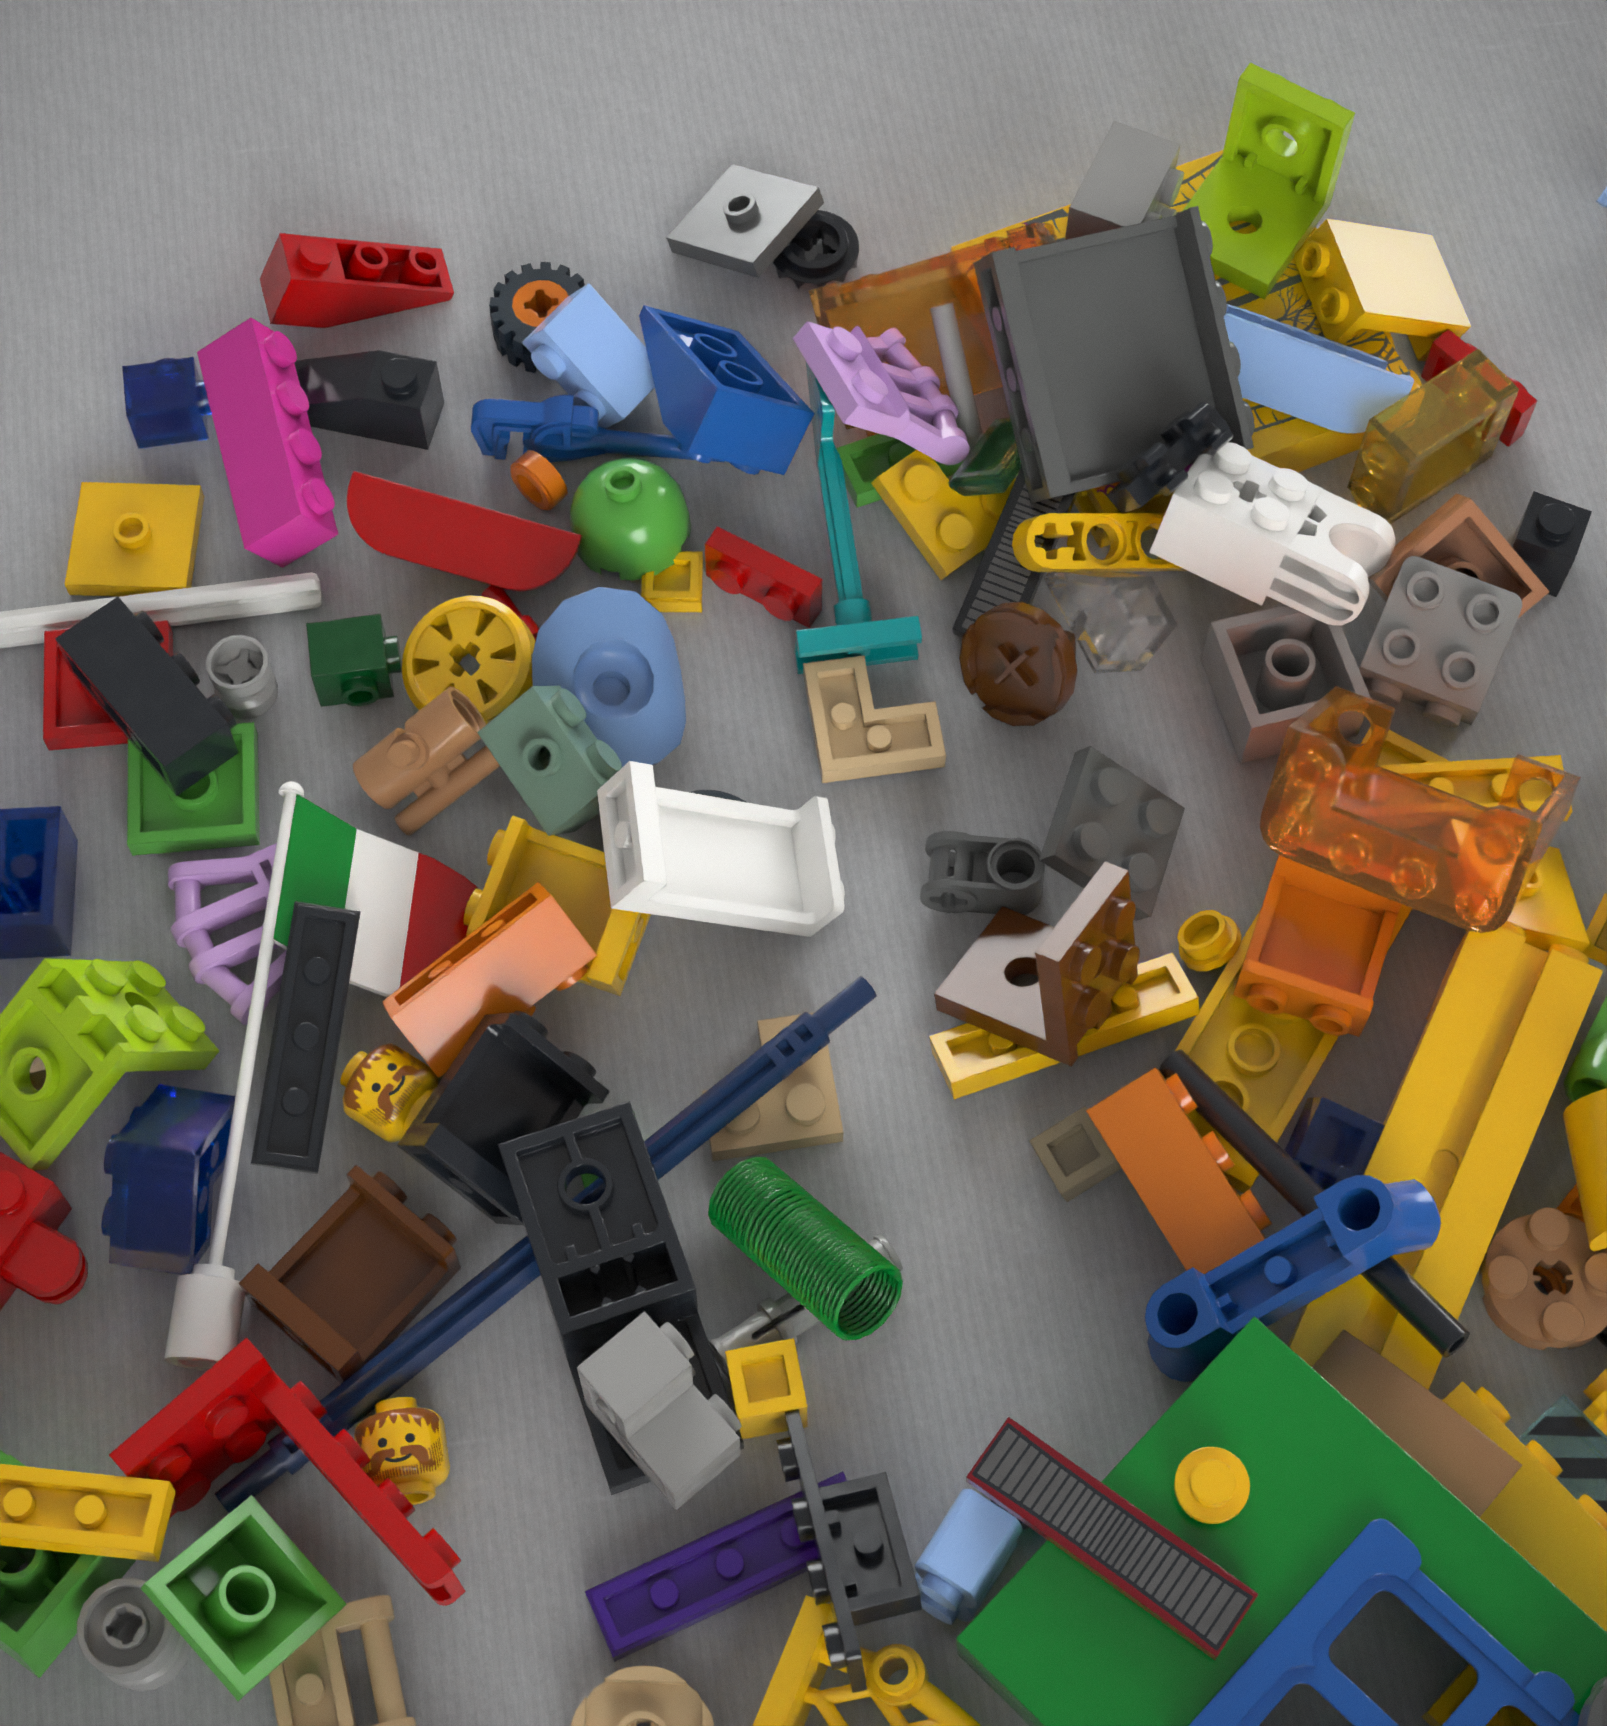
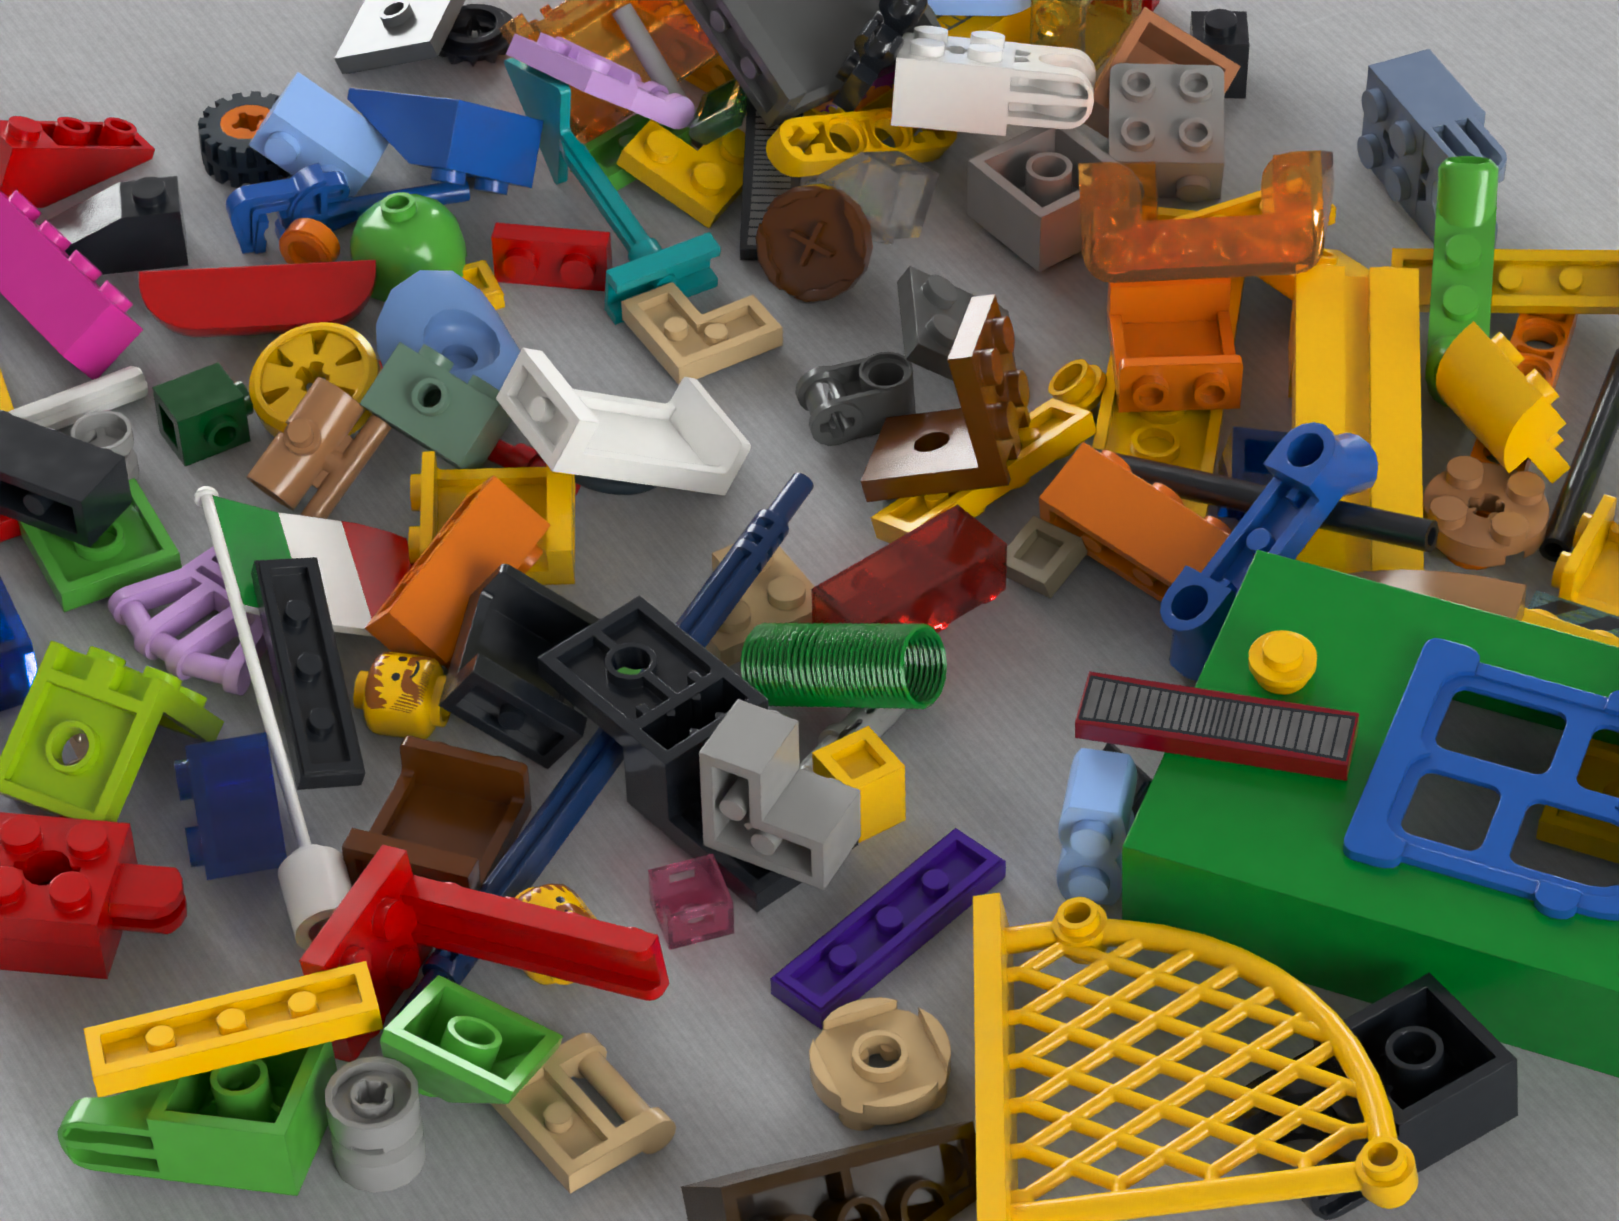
camera: 20 degrees left, 20 degrees down
(543, 1438) = (704, 892): none -> clear pink piece
(859, 1550) = (989, 844): black bracket -> none
(927, 1148) = (920, 577): none -> clear red brick

